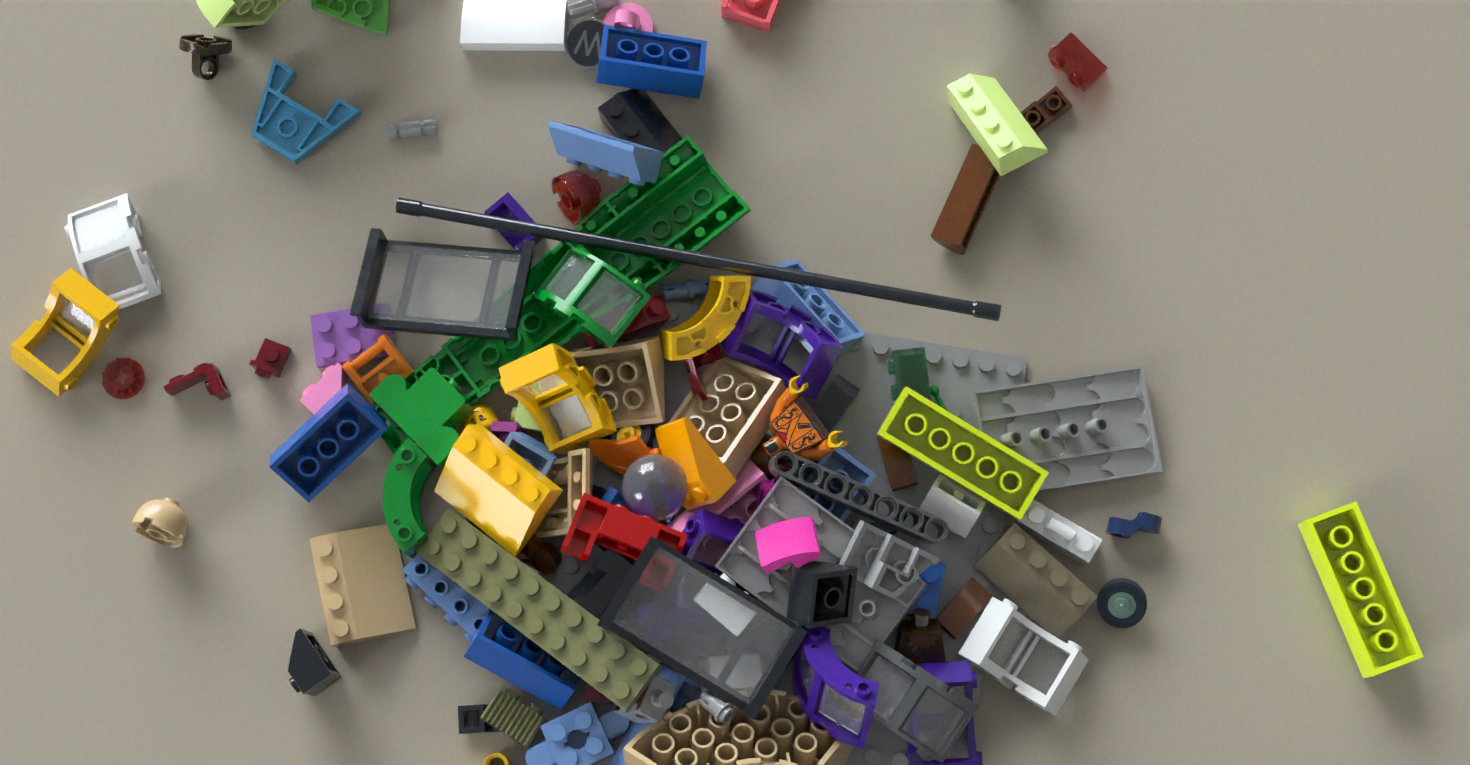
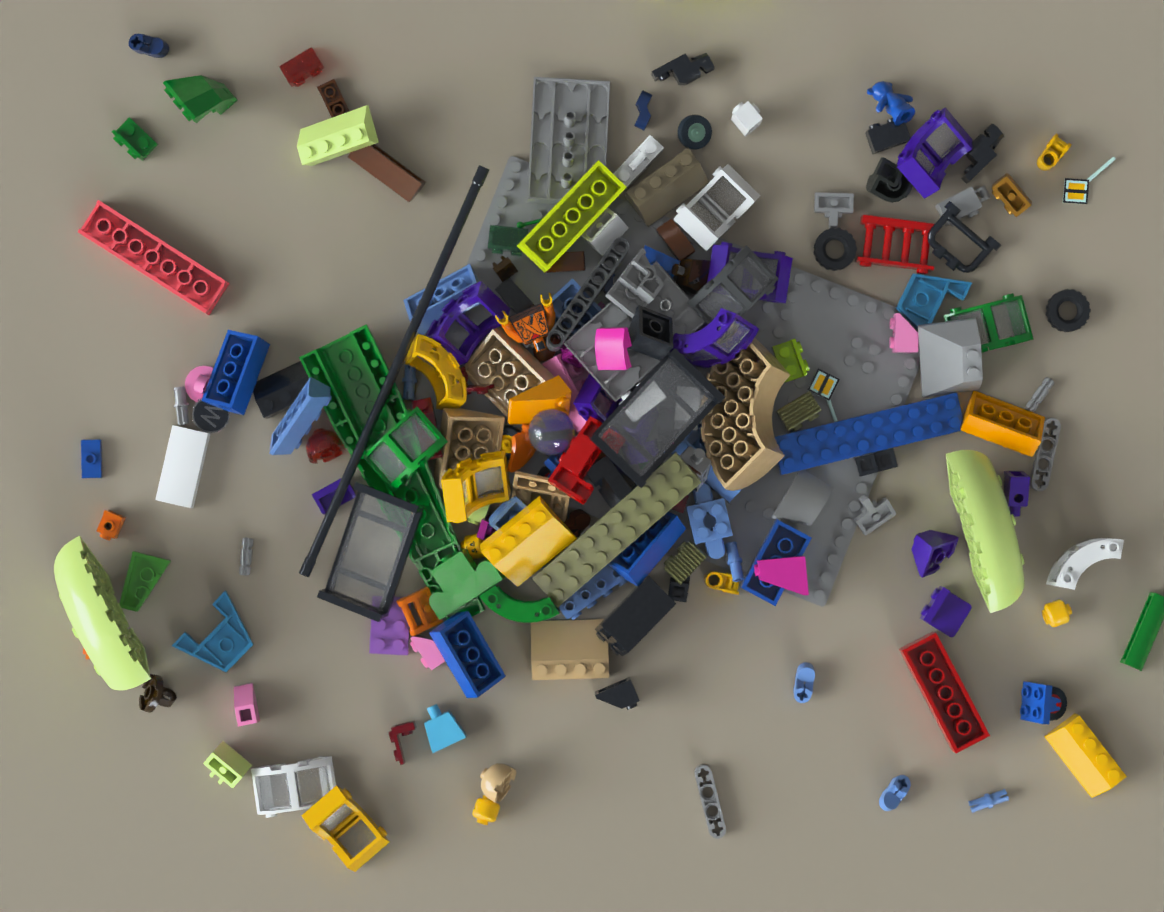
camera: 85 degrees left, 10 degrees up
(119, 516) = (485, 810): none -> yellow head
(127, 161) = (227, 764): none -> yellowish green brick
(133, 383) = (391, 787): clear red gear -> none
(210, 169) = (245, 705): none -> bright pink slope
(223, 434) = (442, 729): none -> medium azure torso
(270, 359) = (395, 687): dark red bracket -> none
(421, 662) = (634, 617): none -> black brick
(722, 711) = (708, 422): light grey pin -> none
(869, 381) = (504, 268): none -> dark brown tile
(1160, 671) = (746, 117): none -> white brick
(1205, 569) = (684, 69): none -> black plate

